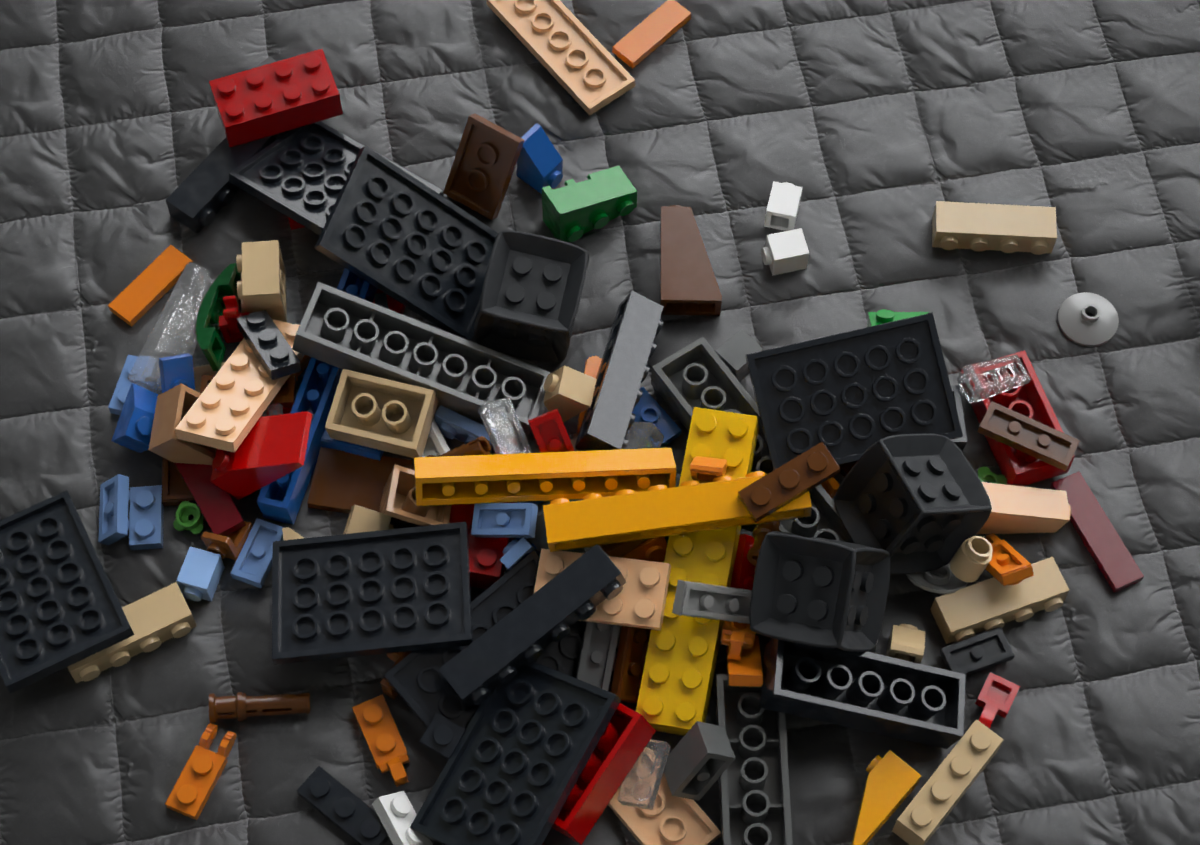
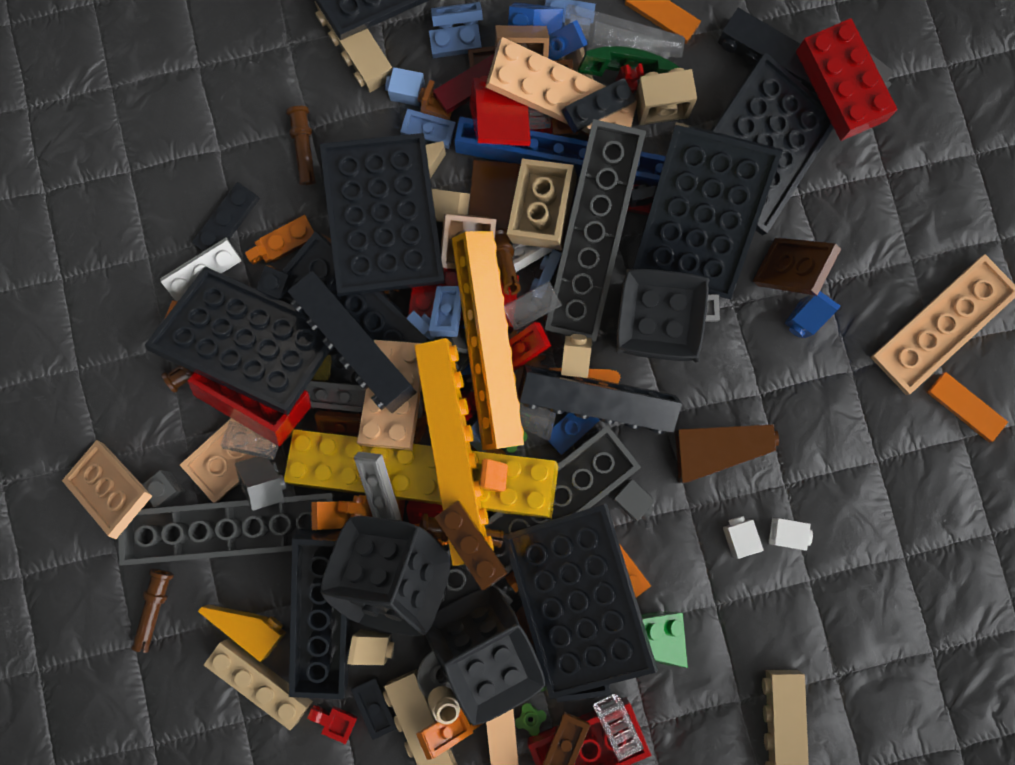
camera: 90 degrees right, 20 degrees up
(182, 518) = (452, 68): bright green plate -> none
(200, 774) = (249, 111): orange hinge -> none
(587, 204) = (773, 362): green wedge -> none

